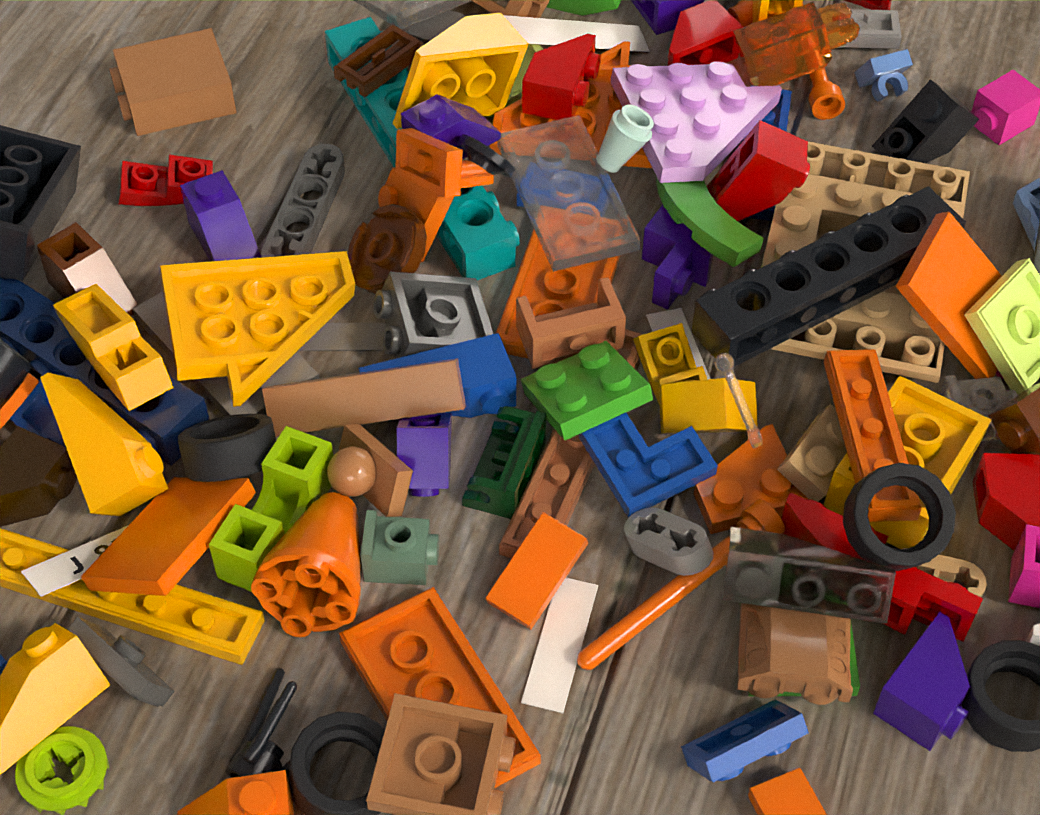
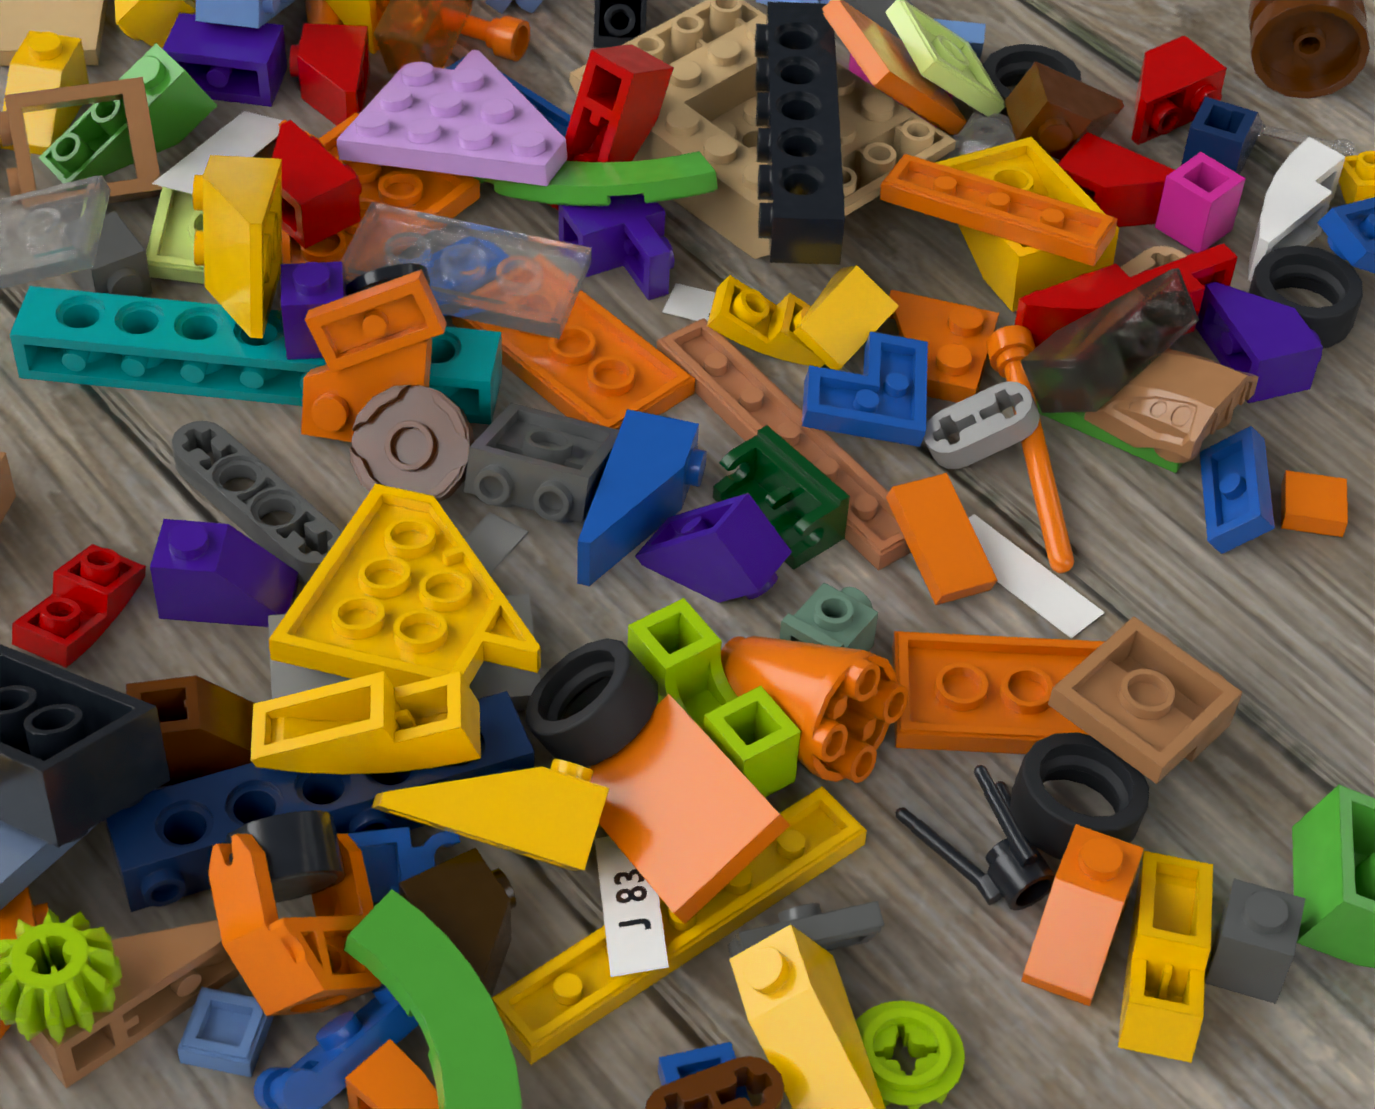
camera: 60 degrees left, 5 degrees down
(366, 397) = (619, 554): medium nougat tile -> none
(369, 470) = (729, 593): medium nougat tile -> none
(383, 64) = (127, 337): reddish brown tile -> none
(566, 332) = (659, 354): nougat panel -> none
(586, 389) = (758, 382): bright green plate -> none
(625, 136) = (466, 174): light aqua cone -> none
(725, 364) = (850, 251): clear hinge -> none
(816, 455) = (958, 271): tan plate -> none
(930, 491) = (1109, 248): black tyre -> none

